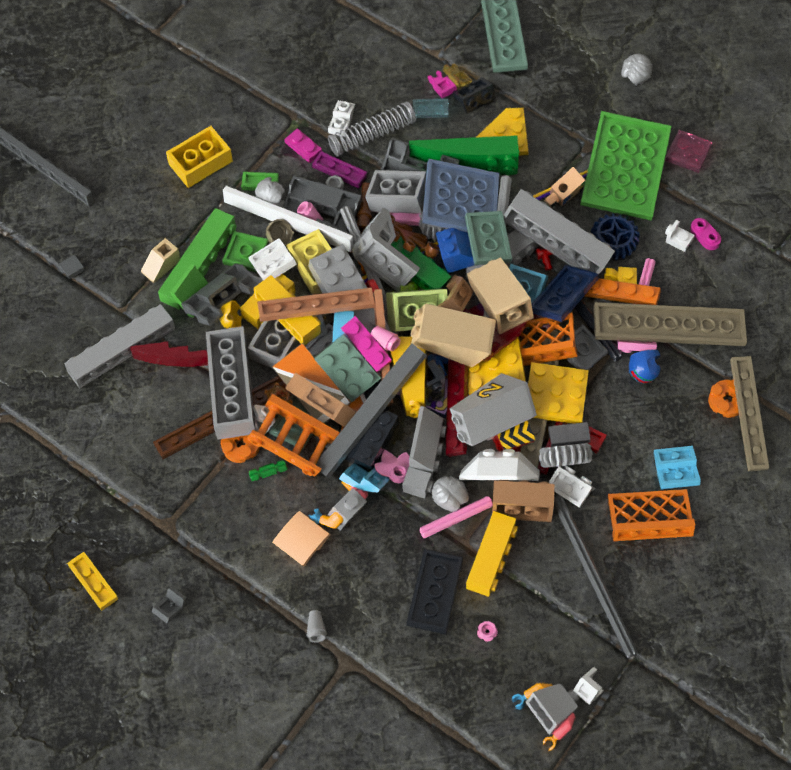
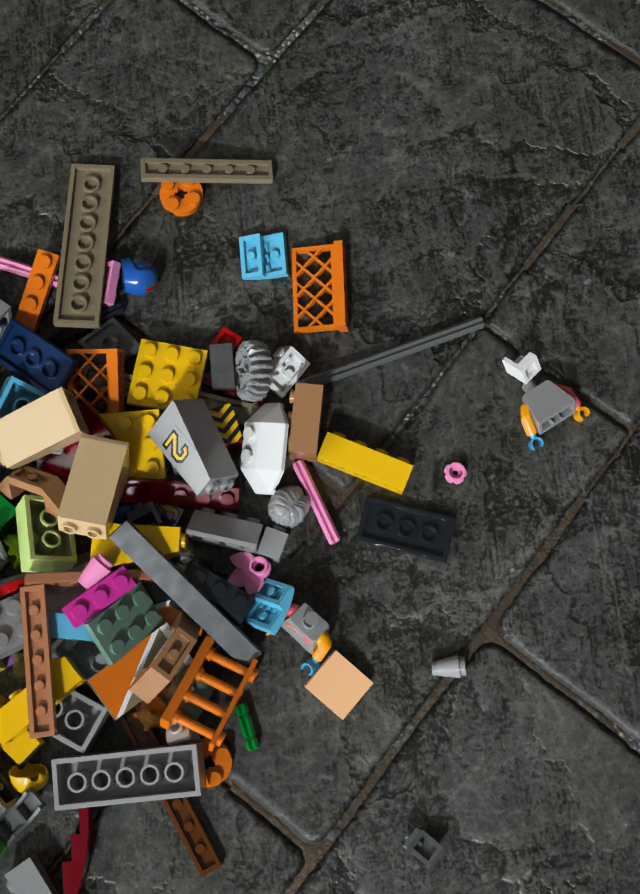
camera: 90 degrees left, 15 degrees up
(623, 274) = (12, 291): yellow plate -> none

